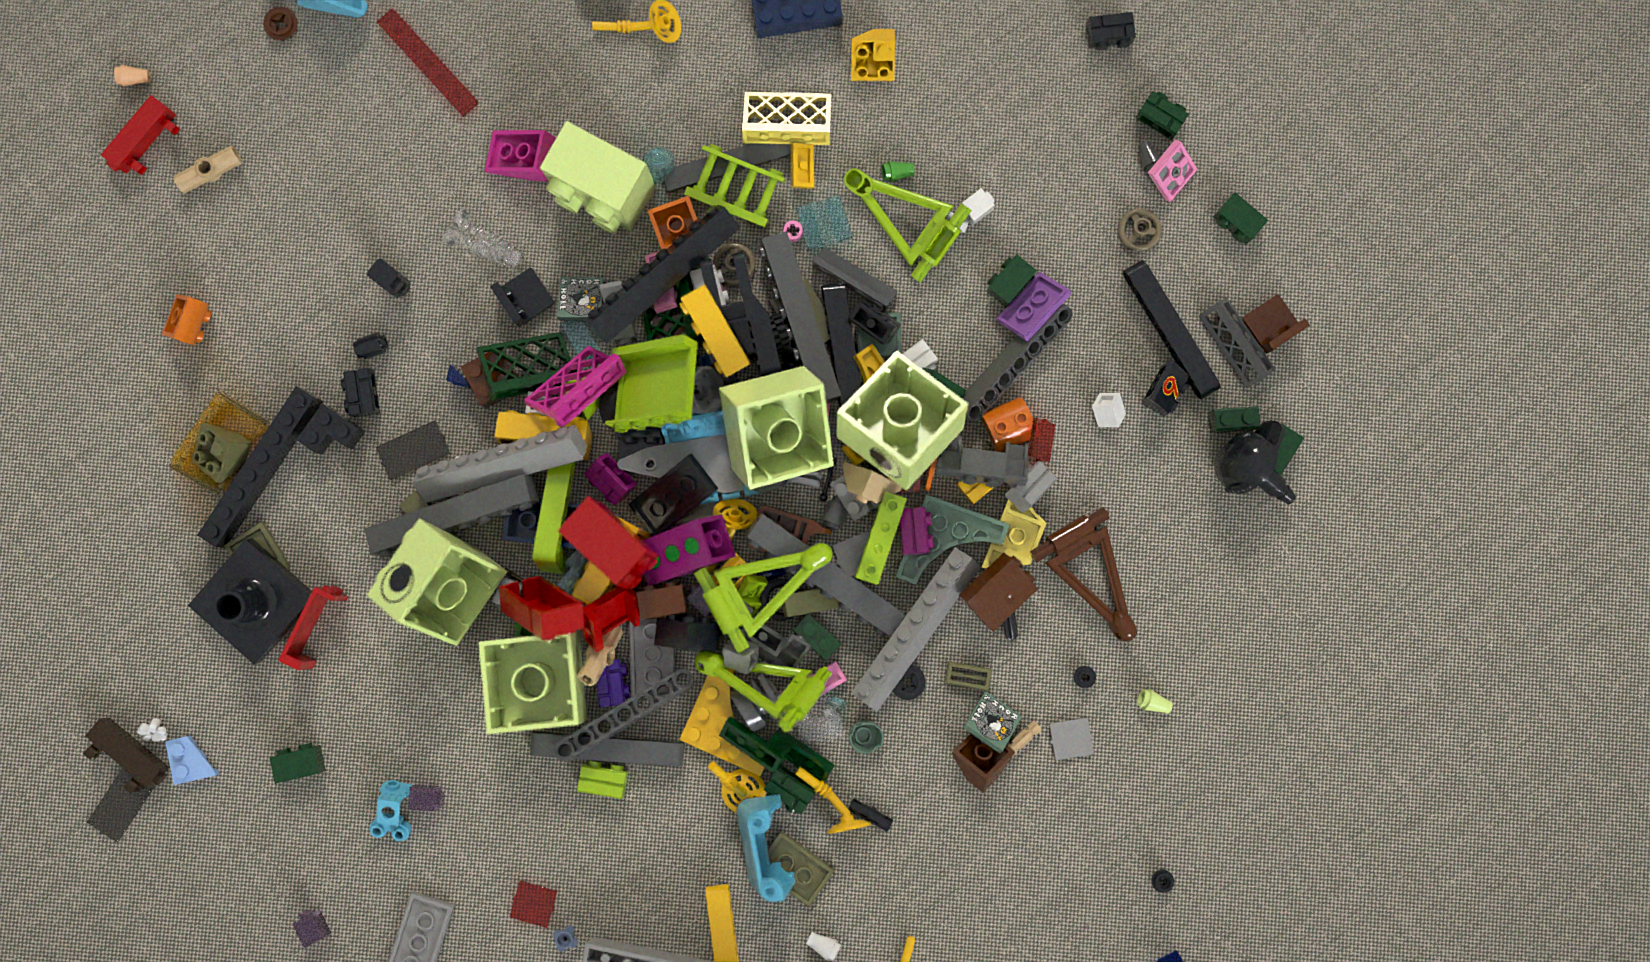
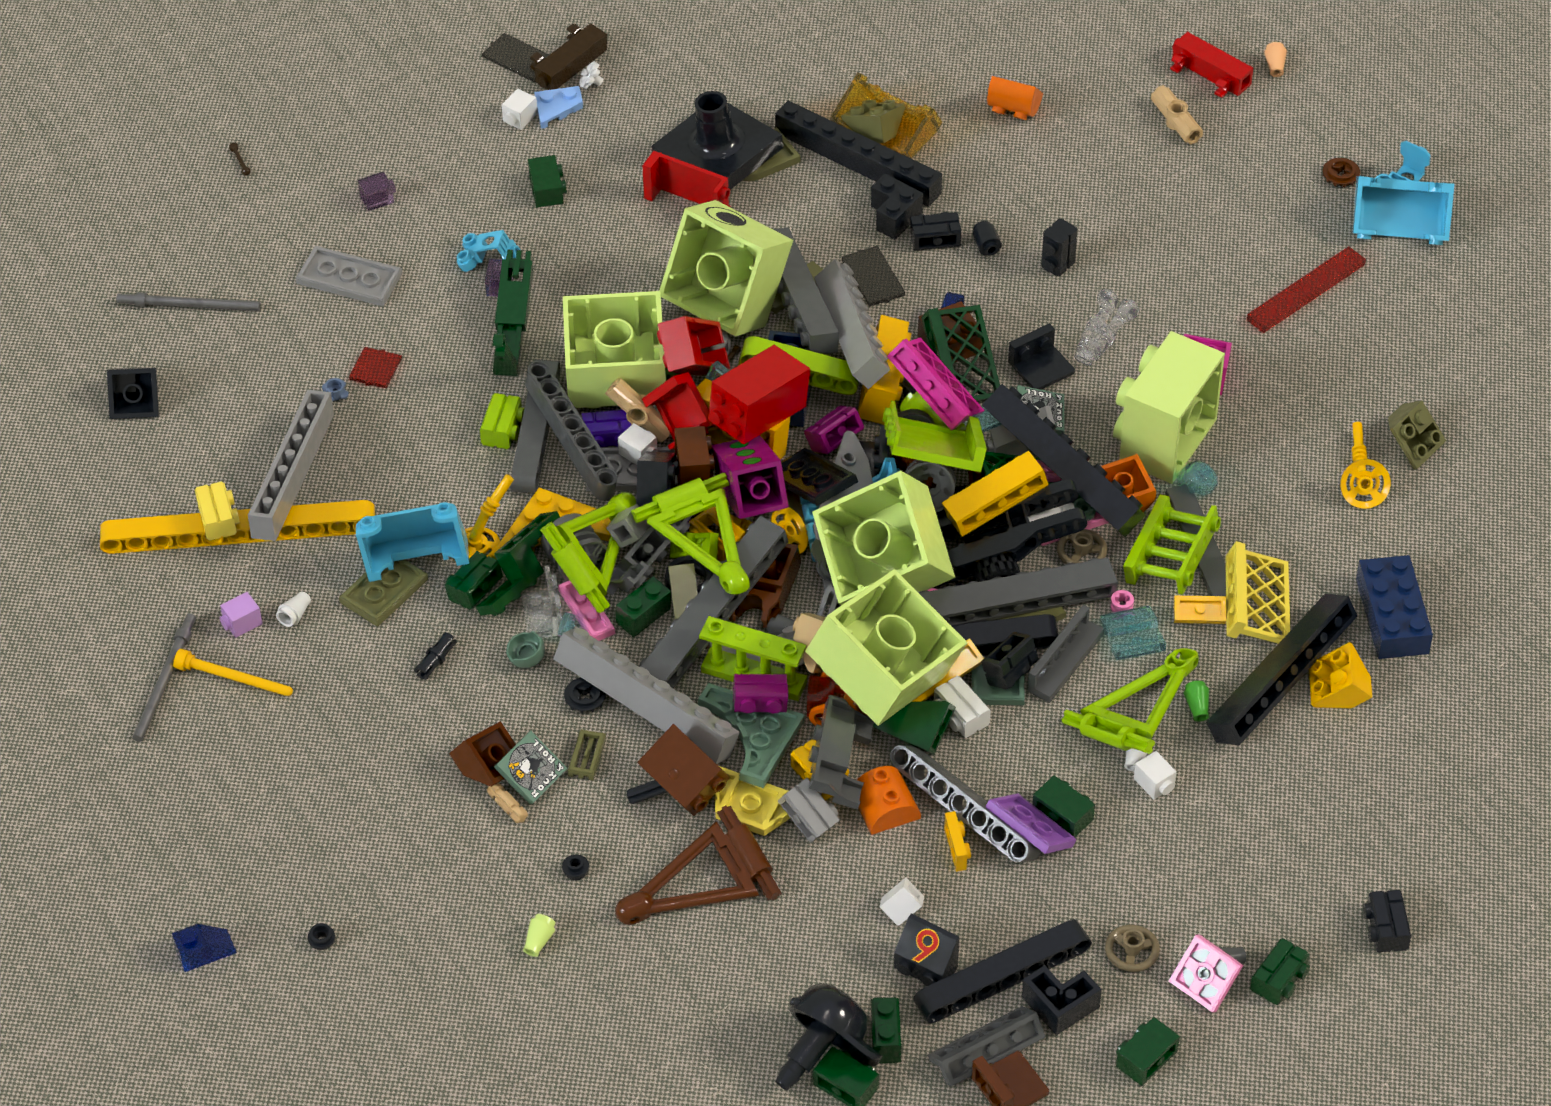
camera: 90 degrees right, 35 degrees down
(199, 797) = (519, 109): none -> white brick
(475, 782) = (512, 312): none -> dark green hinge
(636, 652) = (636, 442): none -> white brick
(847, 820) = (430, 624): yellow dish -> none
(866, 99) = (1281, 669): none -> black brick
(1041, 440) = (865, 826): clear red piece -> none
(1057, 364) = (955, 832): none -> yellow plate
(1071, 738) = (502, 854): light grey piece -> none
(1206, 282) = (1060, 1003): none -> black brick

